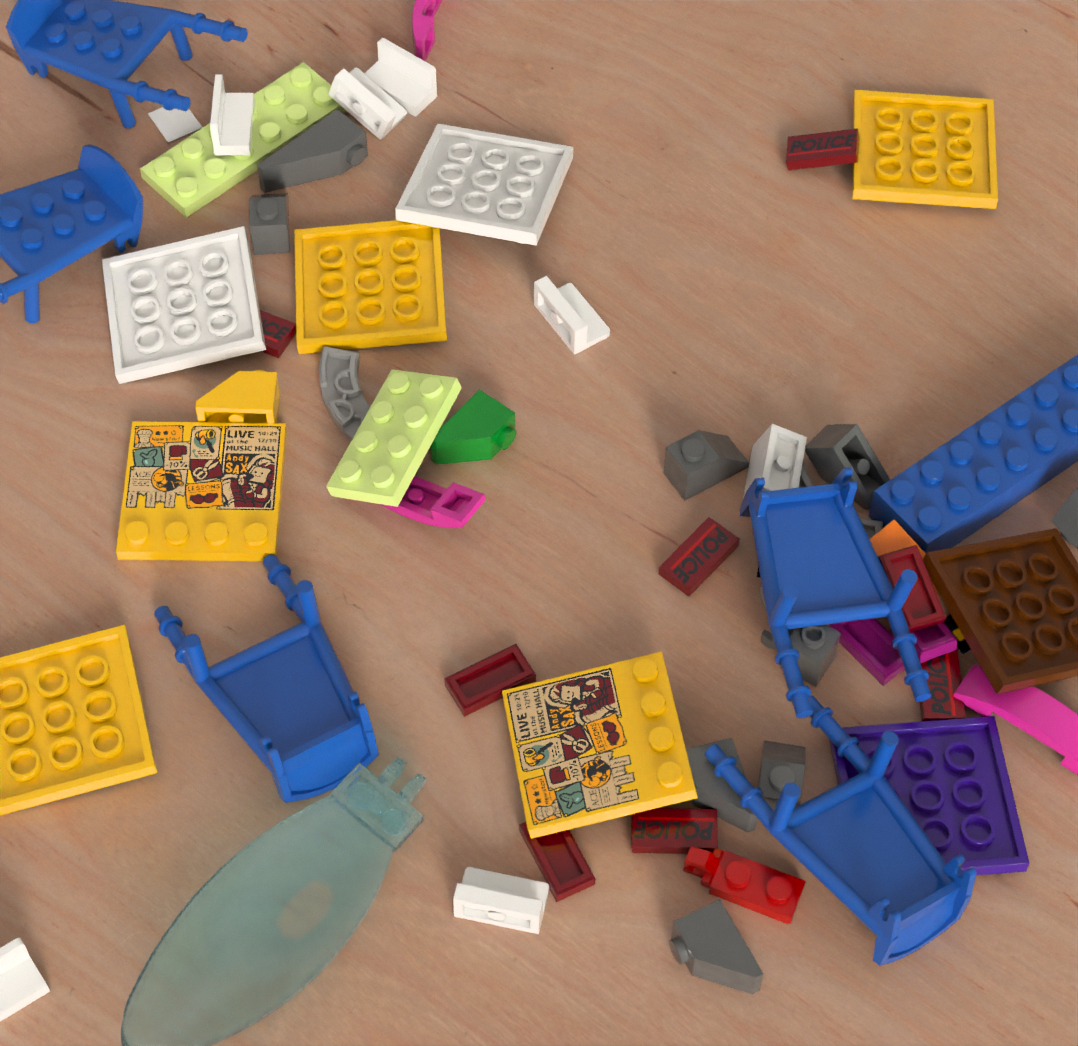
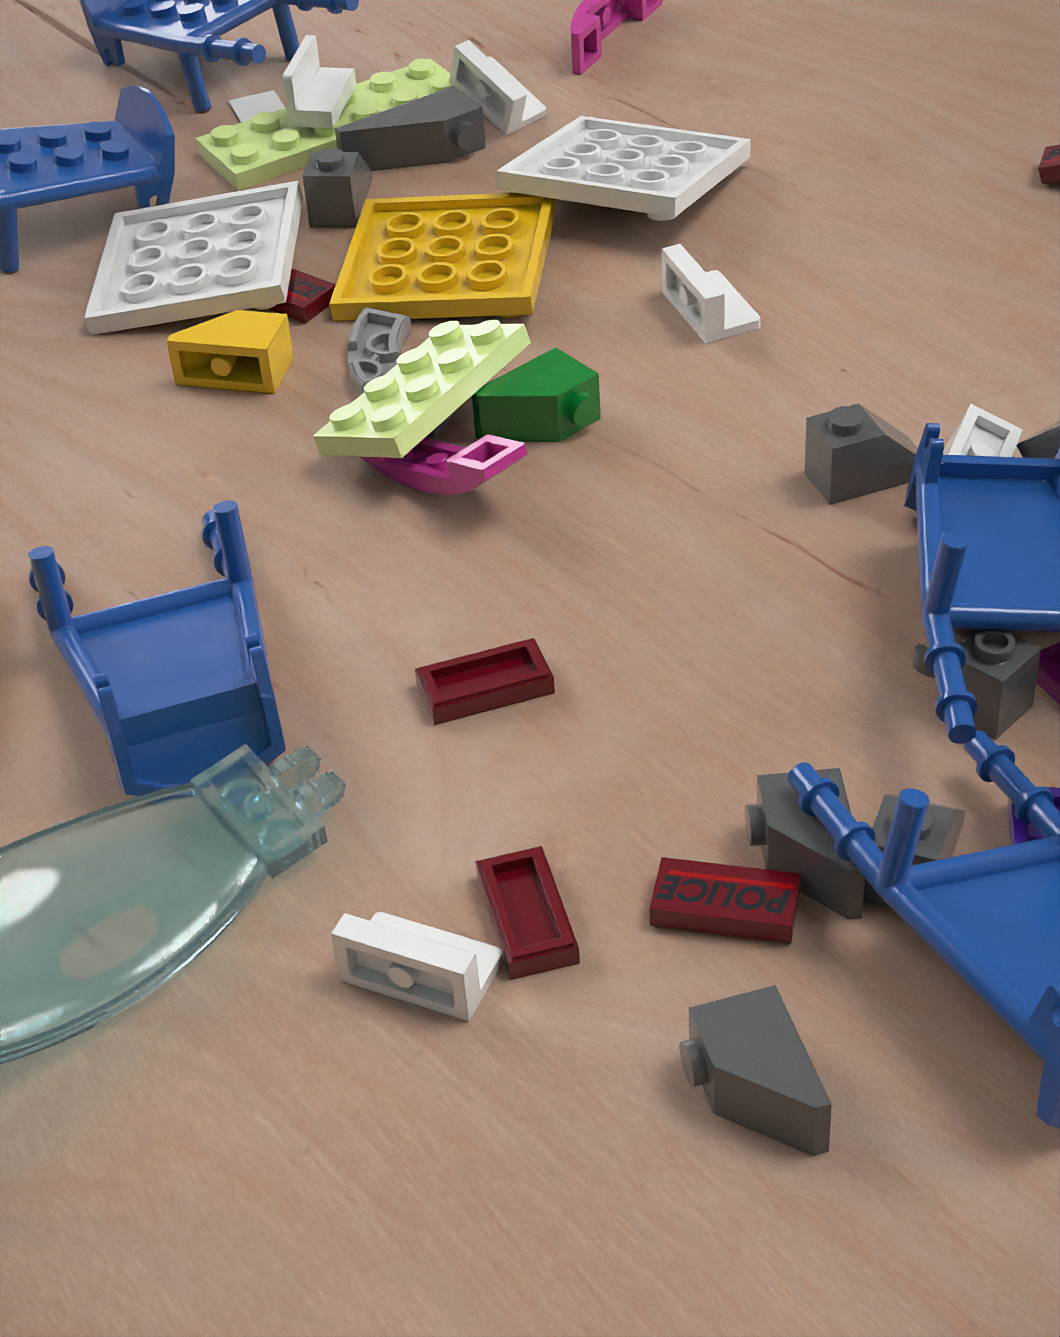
camera: 15 degrees right, 15 degrees down
(202, 491) = (149, 443): plate -> none
(404, 77) = (553, 72): white panel -> none
(598, 745) = (623, 765): plate -> none
(698, 556) = (836, 563): dark red tile -> none
(746, 882) = (833, 984): red hinge -> none

